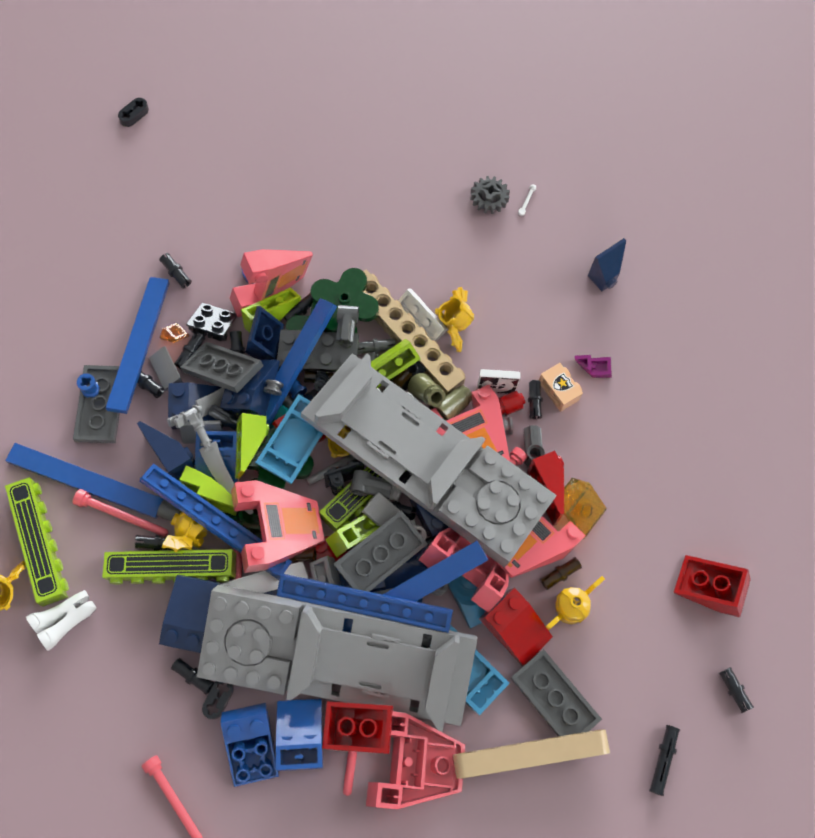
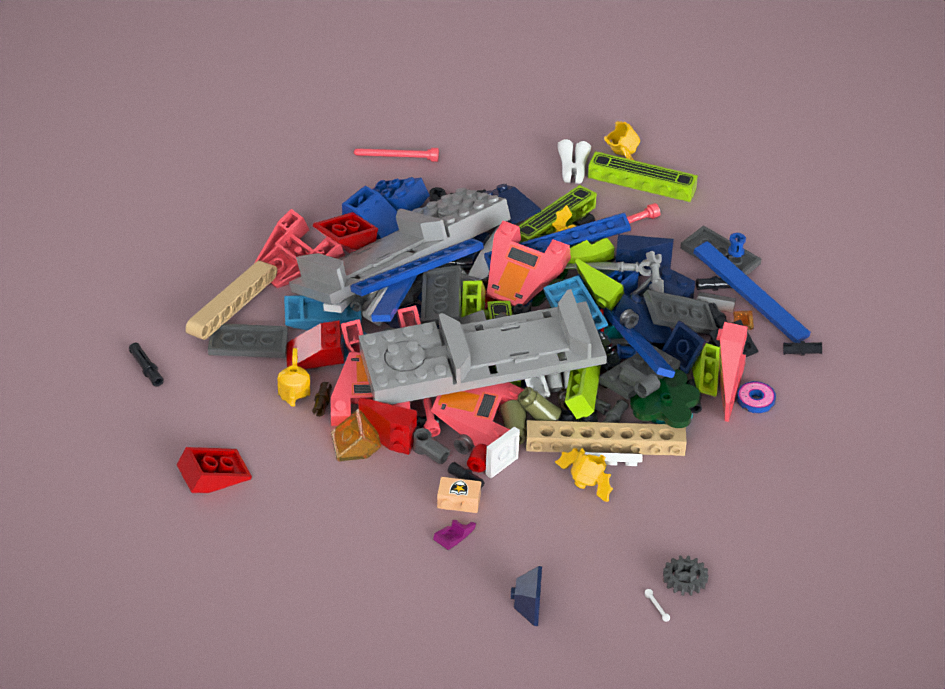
camera: 135 degrees right, 25 degrees down
(84, 479) = (677, 216): blue tile -> none
(736, 690) = (137, 429): black pin -> none

